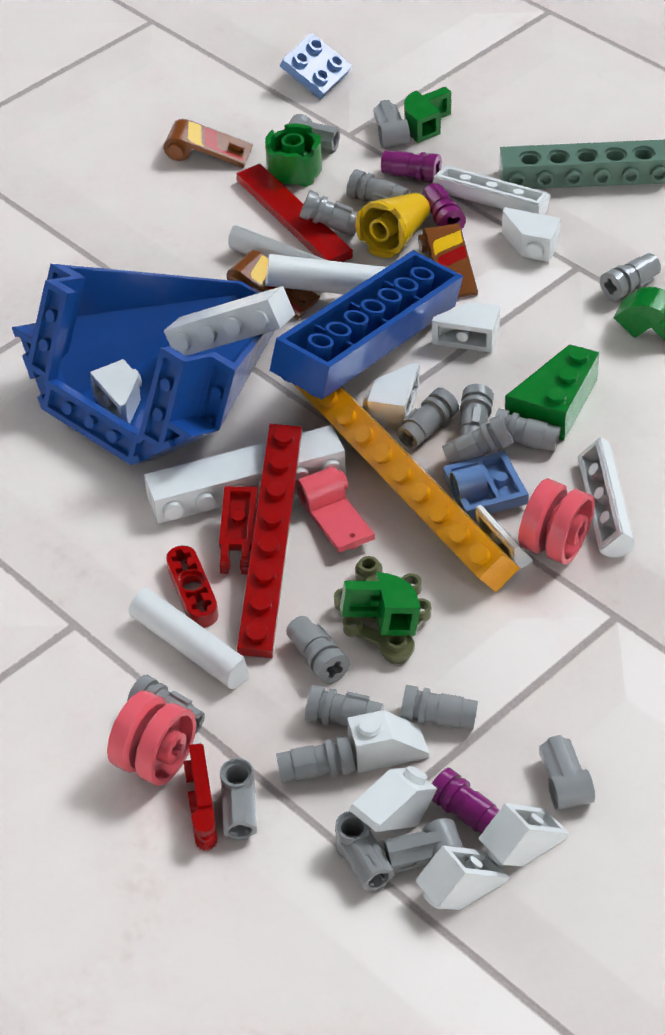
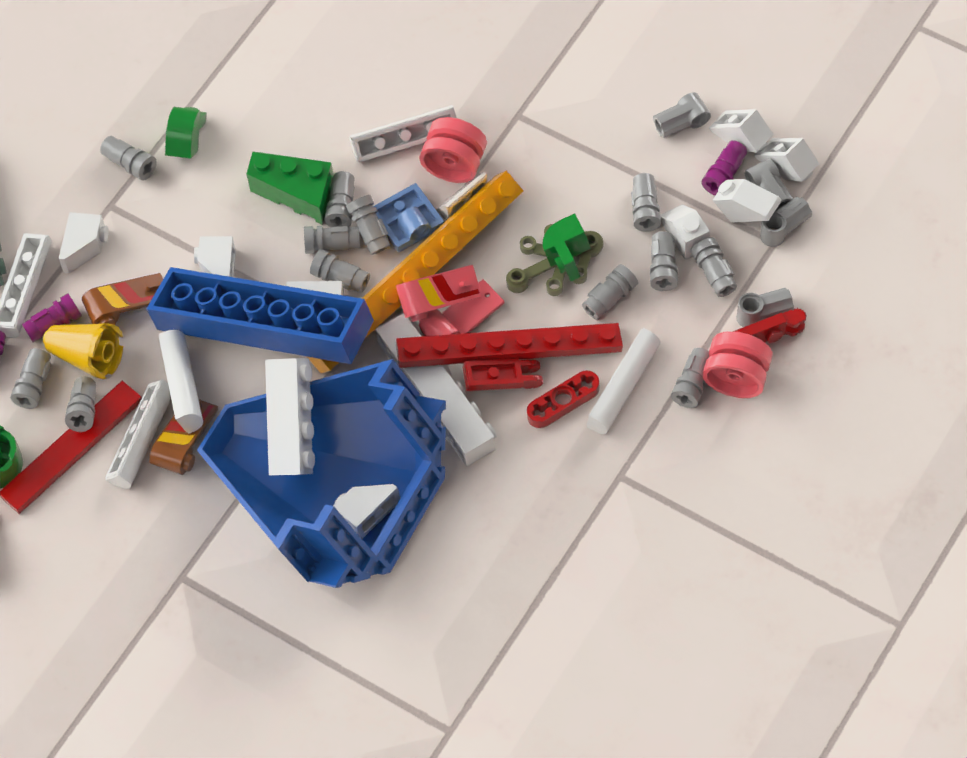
camera: 100 degrees left, 15 degrees up
(353, 474) = (438, 292): none -> coral door

